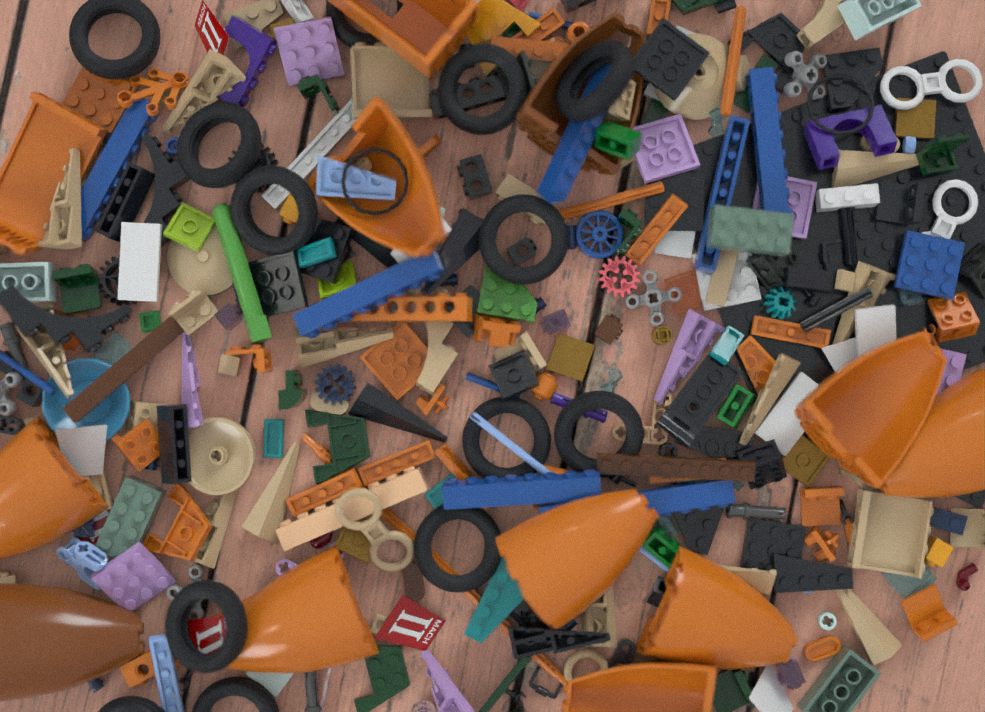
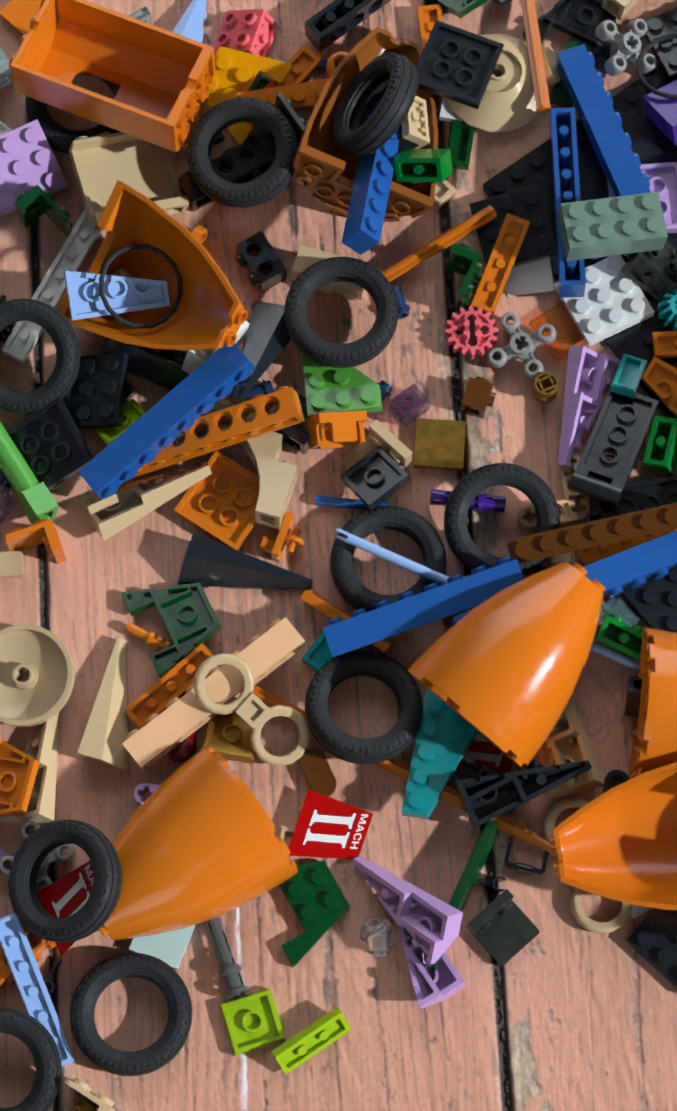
camera: 15 degrees left, 15 degrees down
(273, 438) = (89, 640): teal tile -> none
(289, 211) = (43, 357): light orange brick -> none
(293, 395) = (102, 572): dark green brick -> none
(316, 252) = (88, 393): teal tile -> none
(319, 405) = (150, 576): tan tile -> none
(337, 373) = (151, 537): dark blue gear -> none
(396, 462) = (235, 639): orange plate -> none
(515, 257) = (343, 322): black brick -> none
(547, 387) = (418, 488): orange head -> none
(599, 234) = (432, 290): blue wheel -> none
(614, 376) = (501, 452): clear light blue piece -> none
(665, 149) = (484, 170): lavender plate -> none
(716, 127) = (539, 135): clear light blue piece -> none
(721, 278) = (597, 296): tan tile -> none

